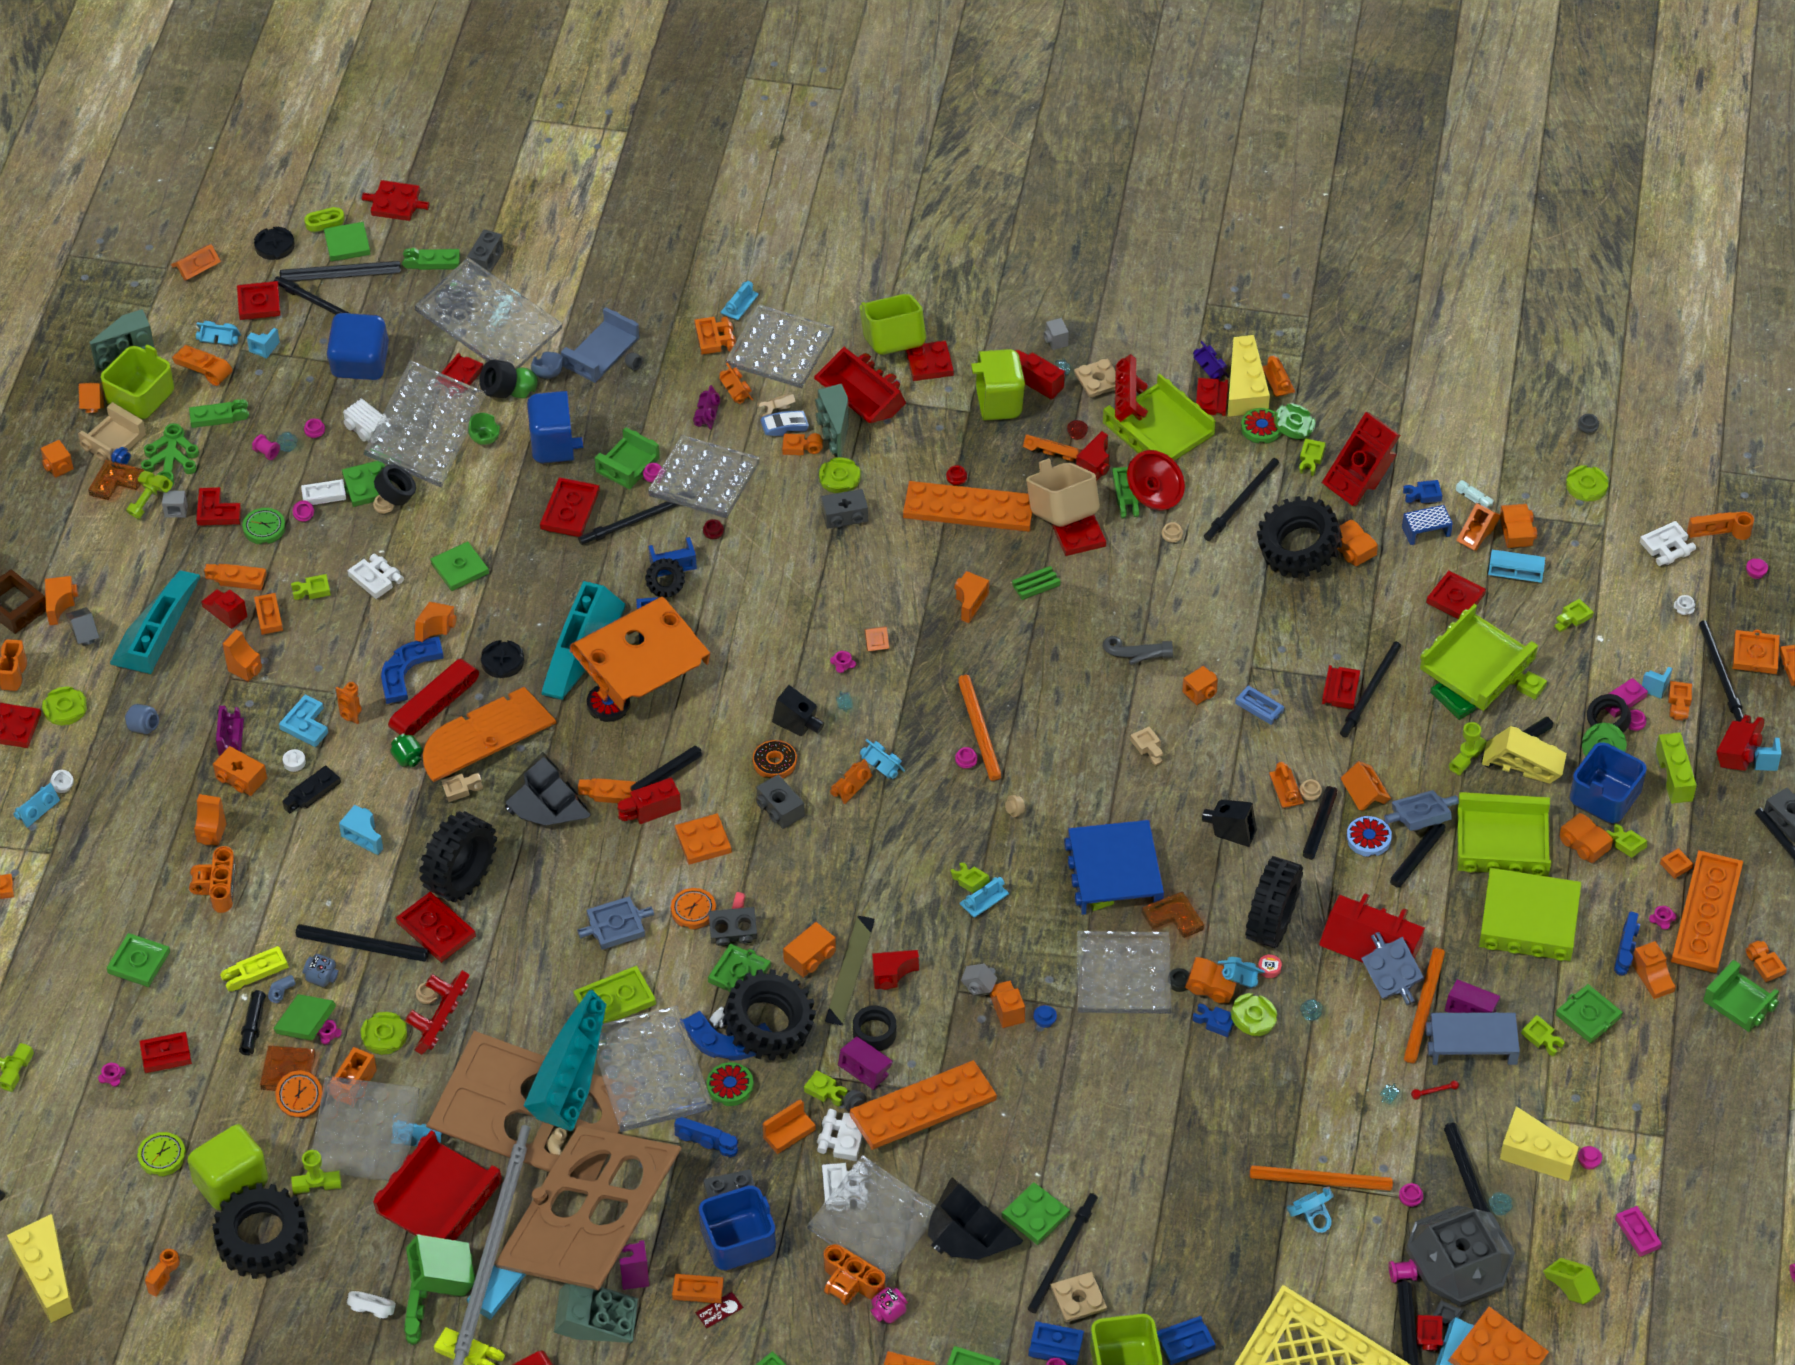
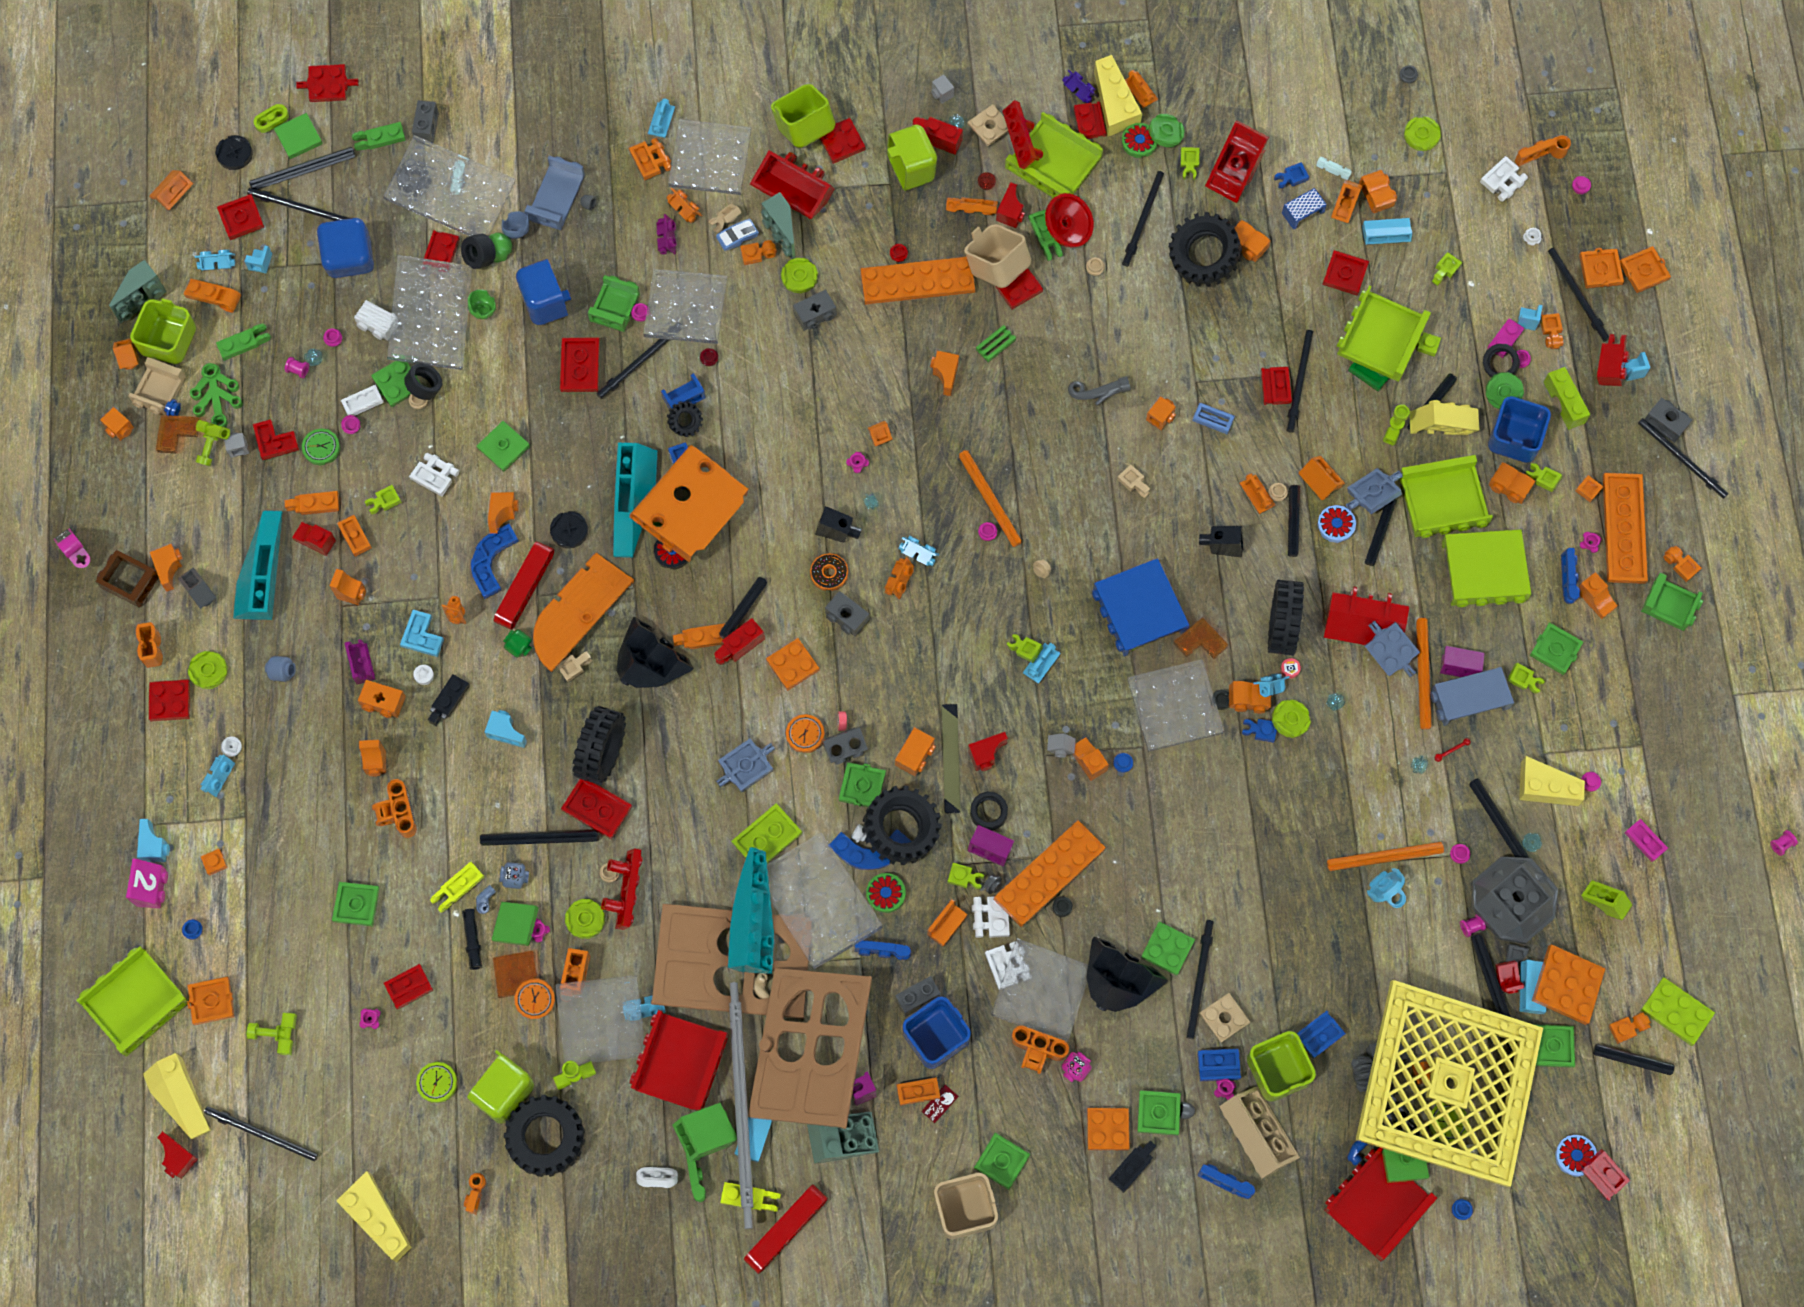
camera: 15 degrees left, 20 degrees up
(927, 1144) = (1062, 906): none -> pearl dark grey tile

